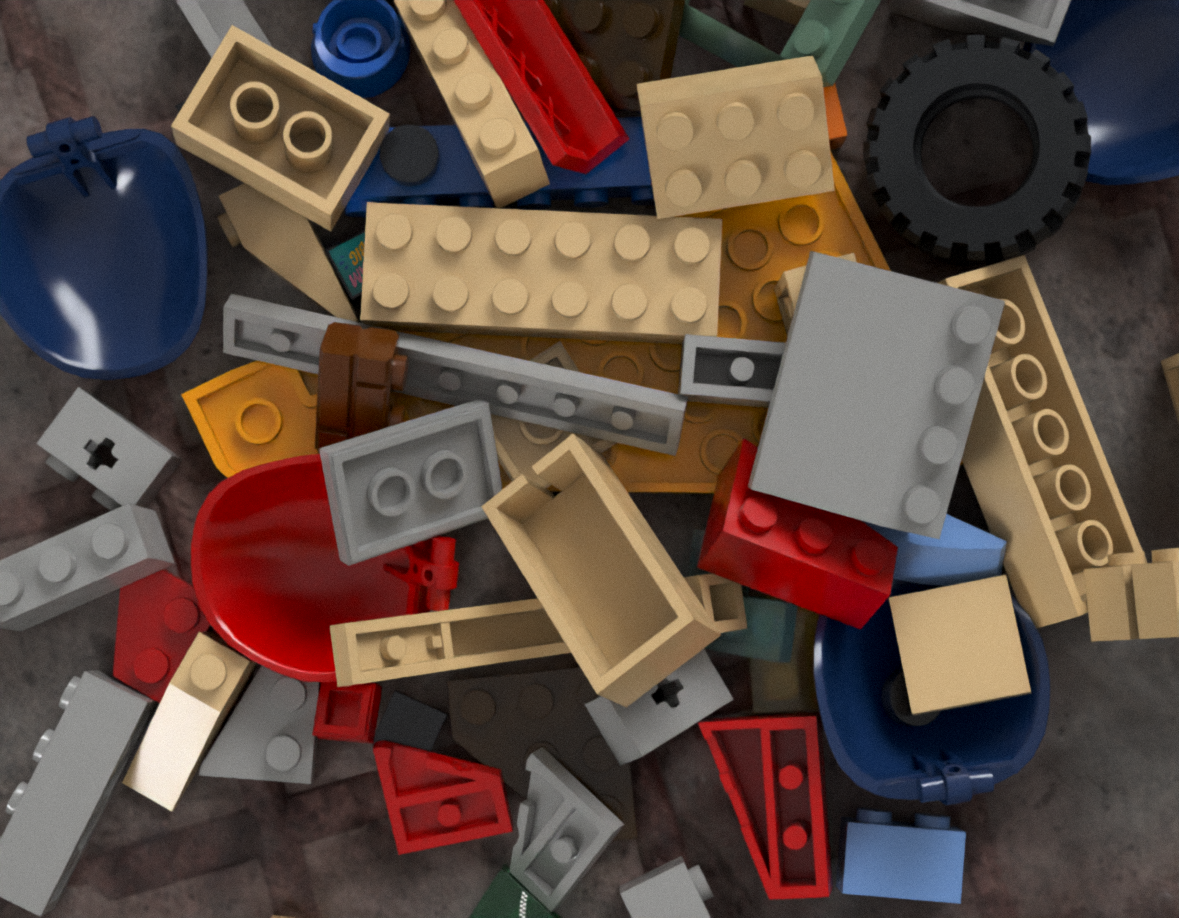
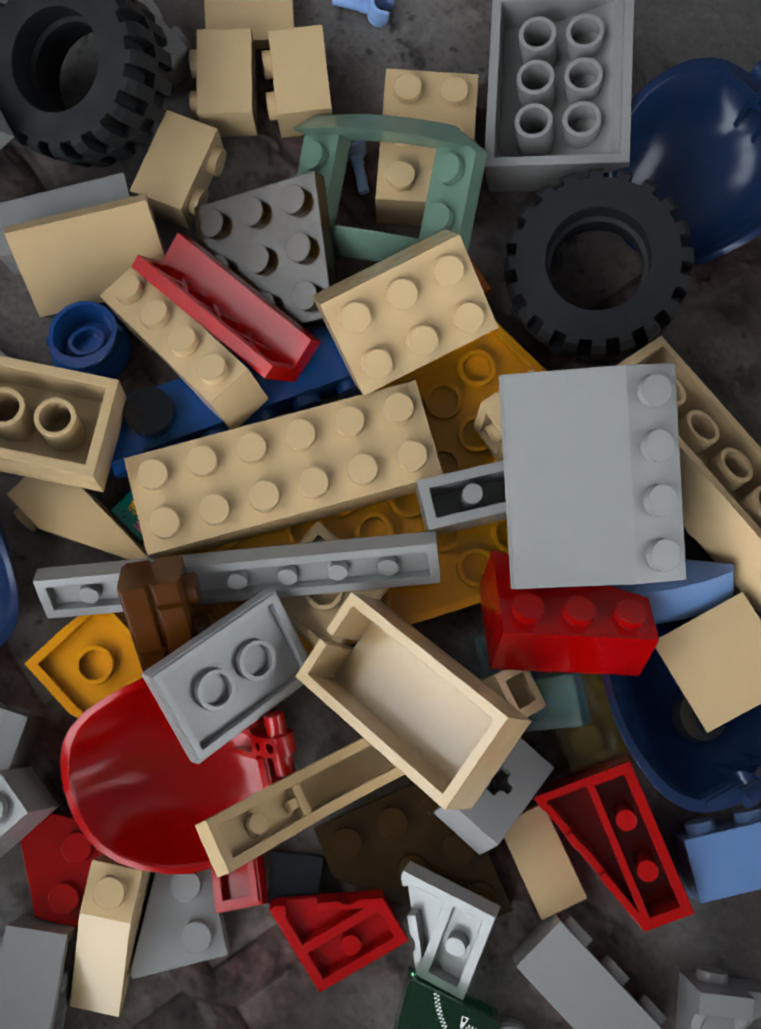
camera: 15 degrees left, 5 degrees down
(687, 798) = (543, 863): none -> tan tile

